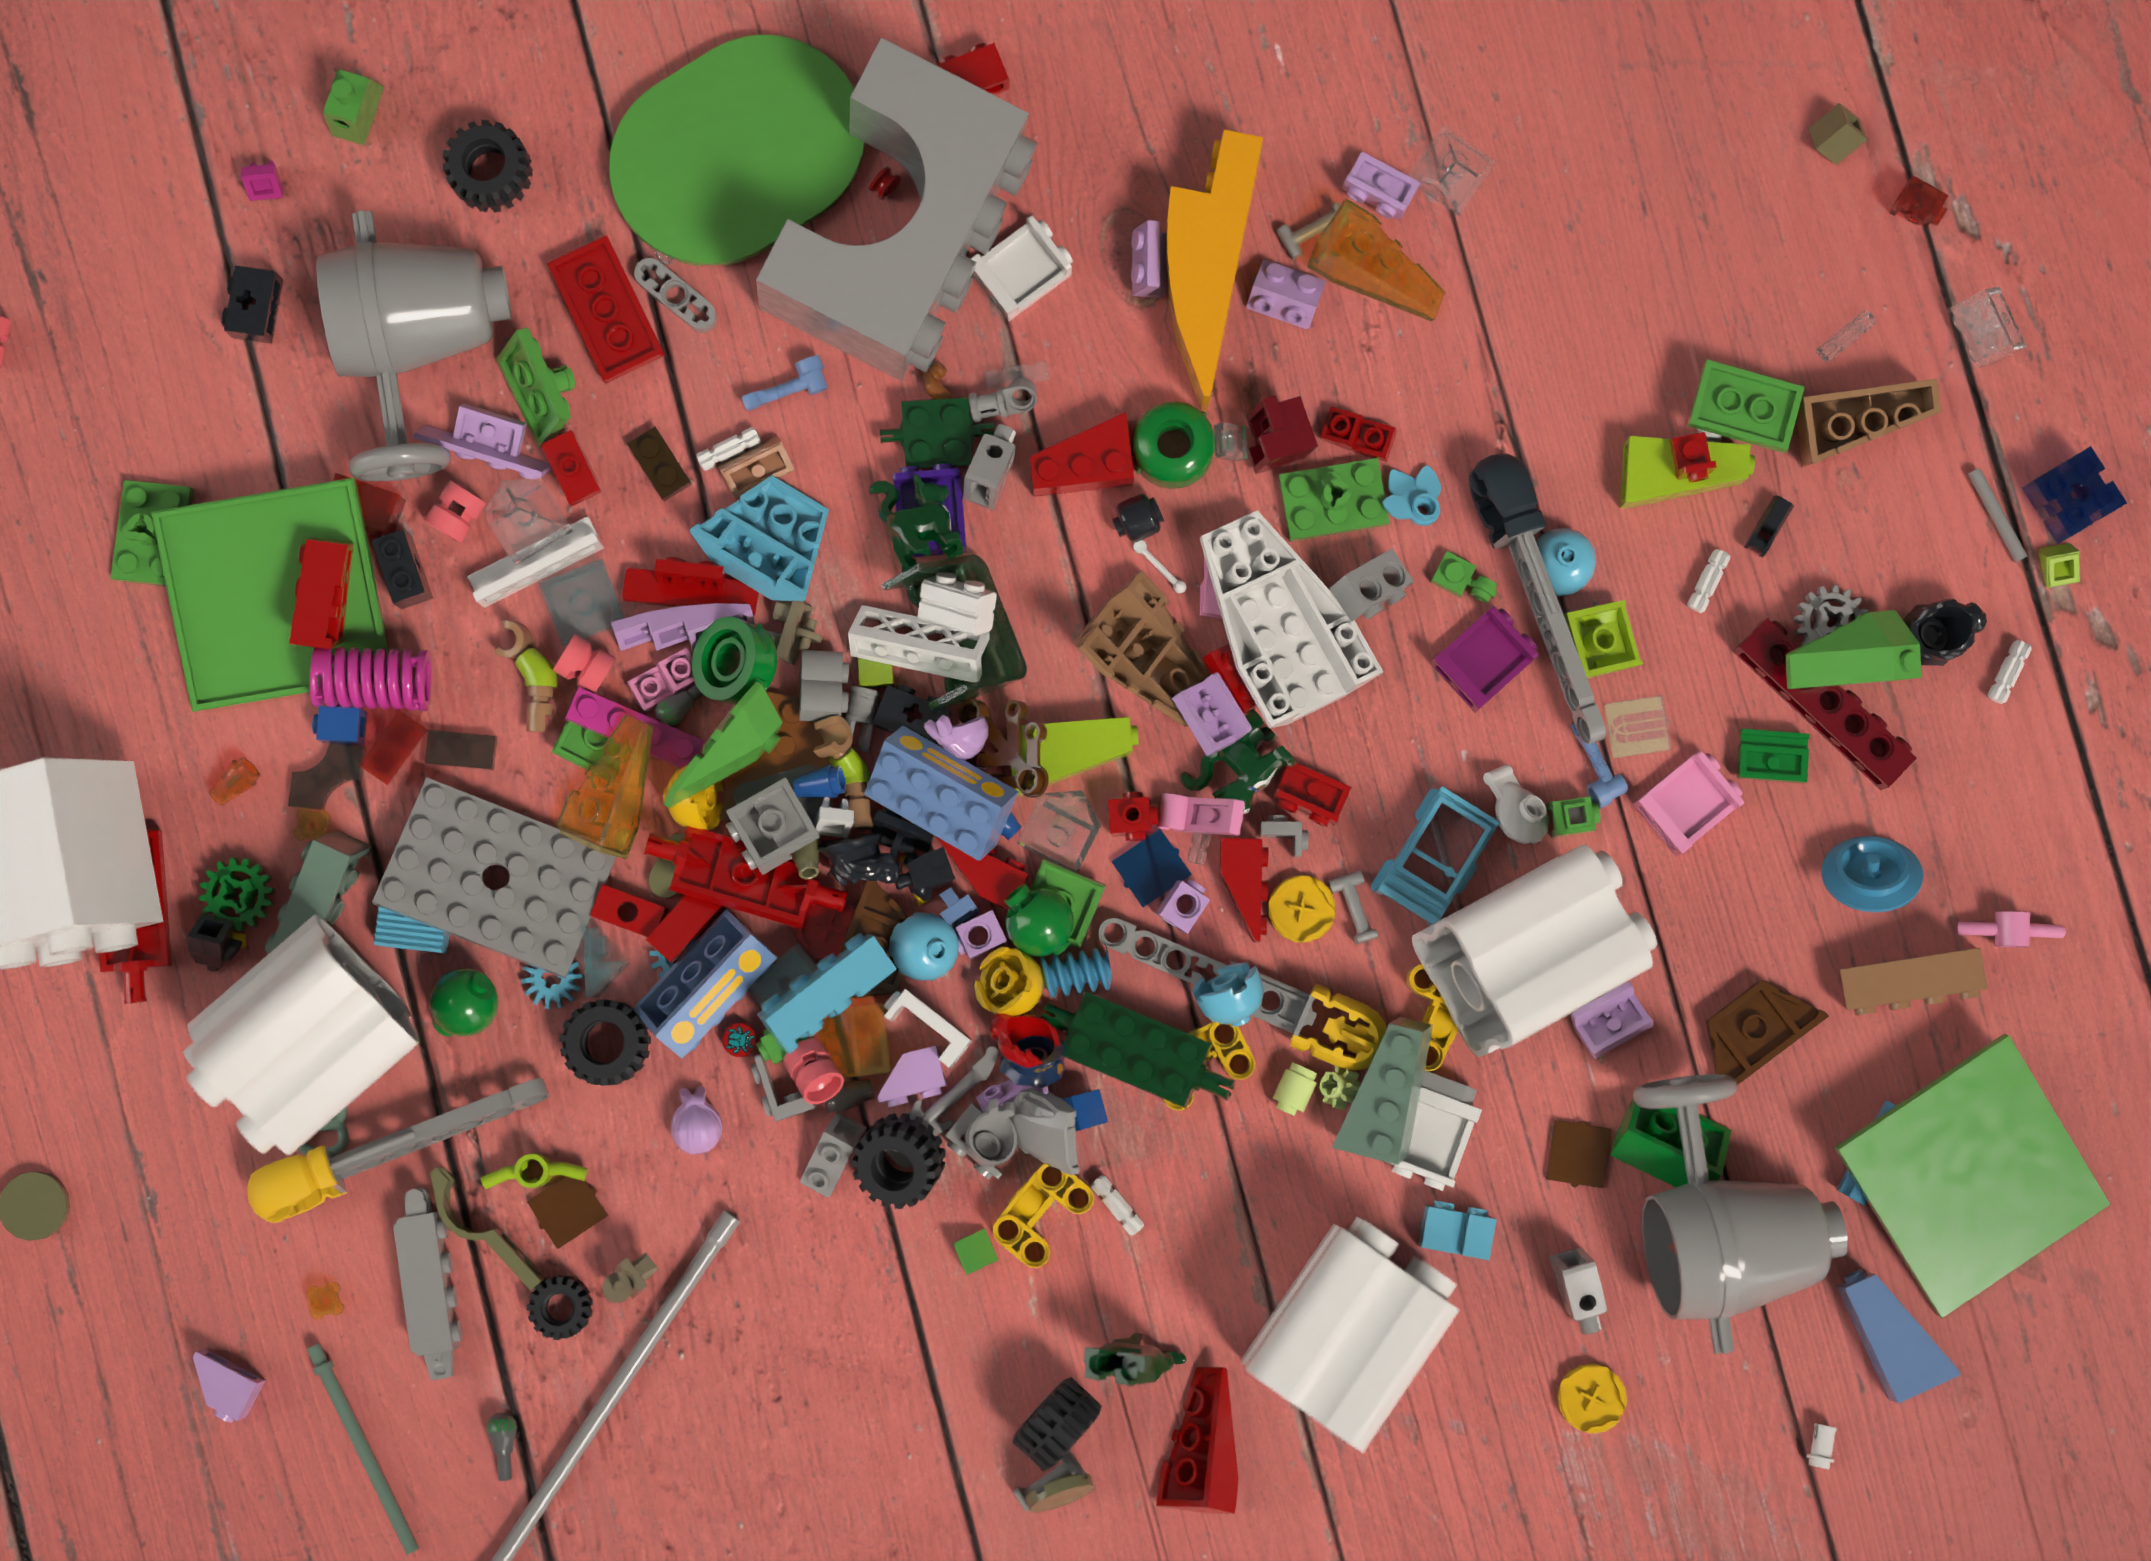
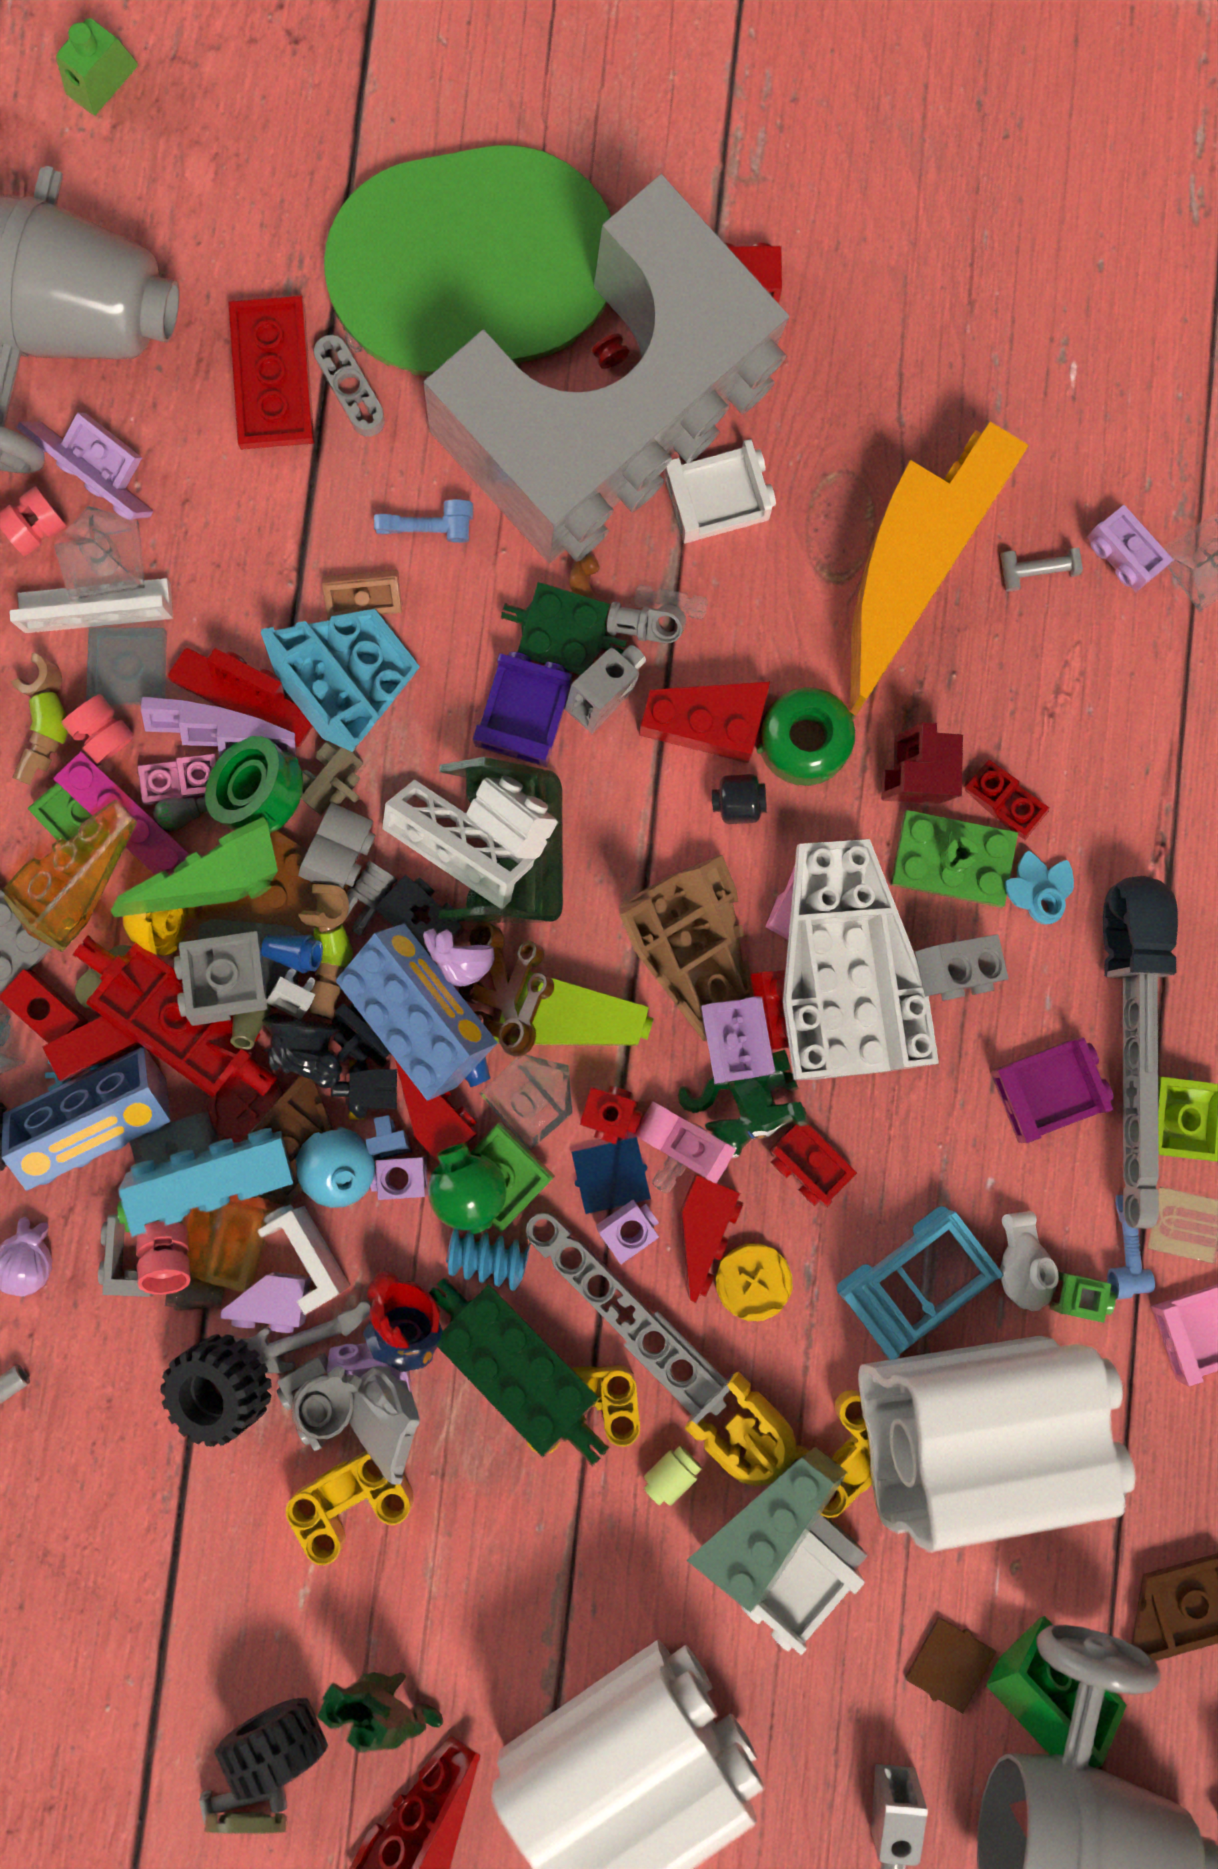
camera: 20 degrees right, 0 degrees up
(472, 145) = (201, 152): black tyre -> none
(536, 385) = (166, 421): bright green plate -> none
(571, 468) = (168, 520): red brick -> none
(659, 464) = (263, 553): dark brown plate -> none
(728, 448) = (340, 564): white axle -> none
(740, 1040) = (103, 1189): tile -> none
(832, 1154) = (153, 1350): light grey bracket -> none
(875, 674) = (399, 857): lime slope -> none
(915, 527) = (501, 718): dark green animal -> none
(975, 1251) = (262, 1515): bright green slope -> none
(1009, 982) = (409, 1243): yellow cylinder -> none
(1088, 1109) = (437, 1410): blue brick -> none
(1117, 1205) = (433, 1525): white axle -> none
(1141, 548) = (730, 831): white hinge -> none
(1148, 260) = (855, 533): lavender bracket -> none
(1230, 442) = (868, 756): clear plate -> none
(1230, 996) = (640, 1351): medium azure cylinder -> none
(1278, 827) = (763, 1185): light grey bracket -> none
(1285, 294) = (985, 624): lavender bracket -> none
(1339, 1087) = (721, 1495): yellowish green gear -> none
(1347, 885) = (812, 1274): light grey piece -> none
(1365, 260) = (1084, 620): clear yellow wedge -> none
(1456, 573) = (1054, 988): bright green plate -> none
(1457, 1231) = (787, 1701): medium azure brick -> none
(1565, 575) = (1183, 1017): medium azure cylinder -> none
(1610, 1020) = (1044, 1548): lavender bracket -> none

